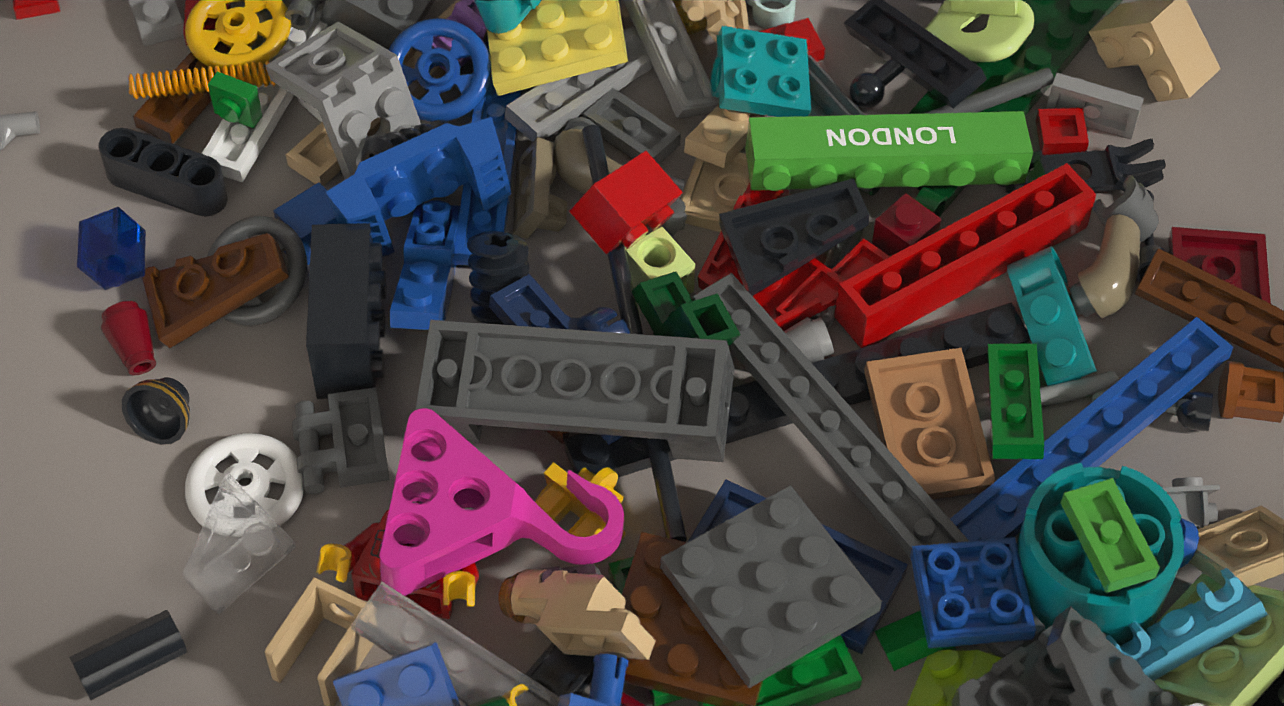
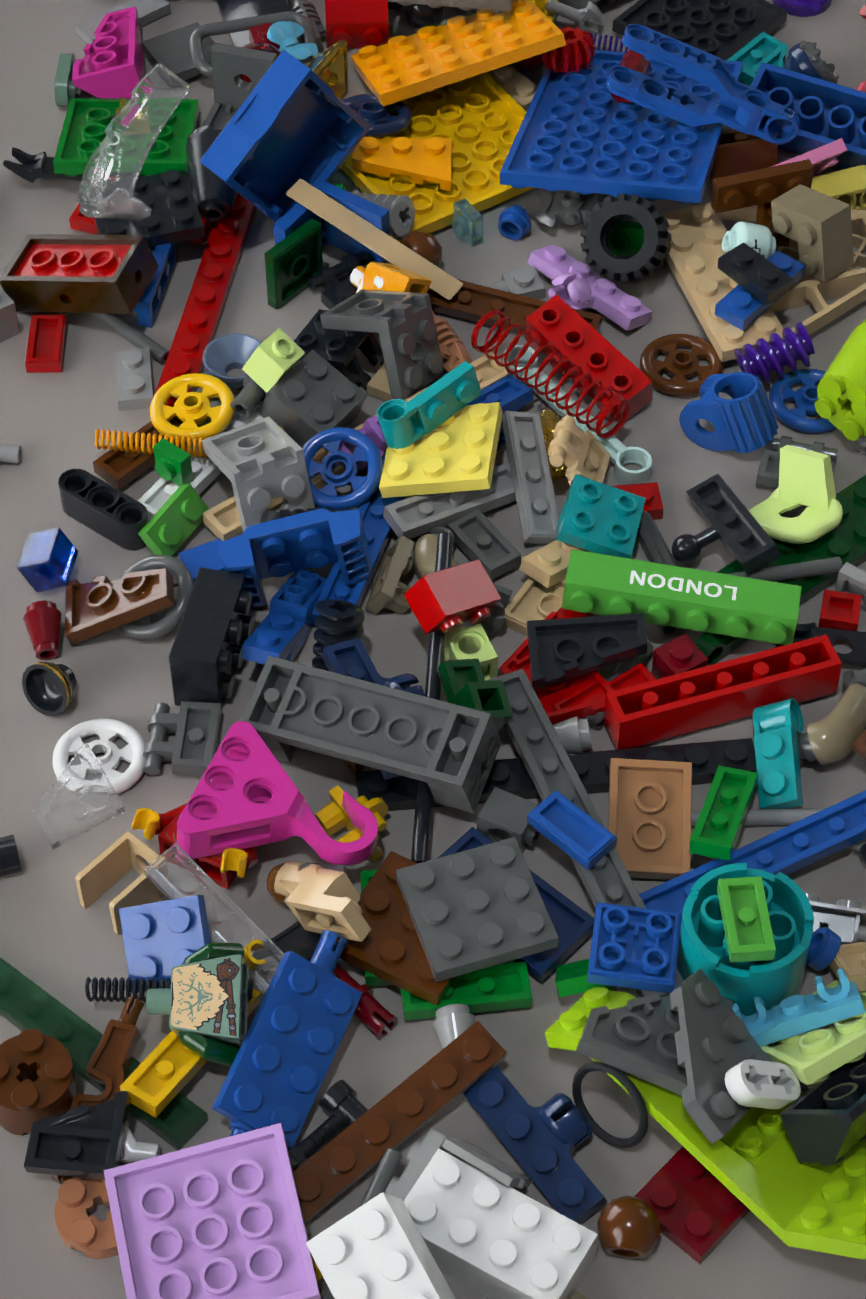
camera: 15 degrees right, 5 degrees down
(254, 171) = (174, 521): none -> bright green plate
(766, 461) = (506, 817): none -> dark grey brick
(852, 461) = (572, 830): none -> blue tile

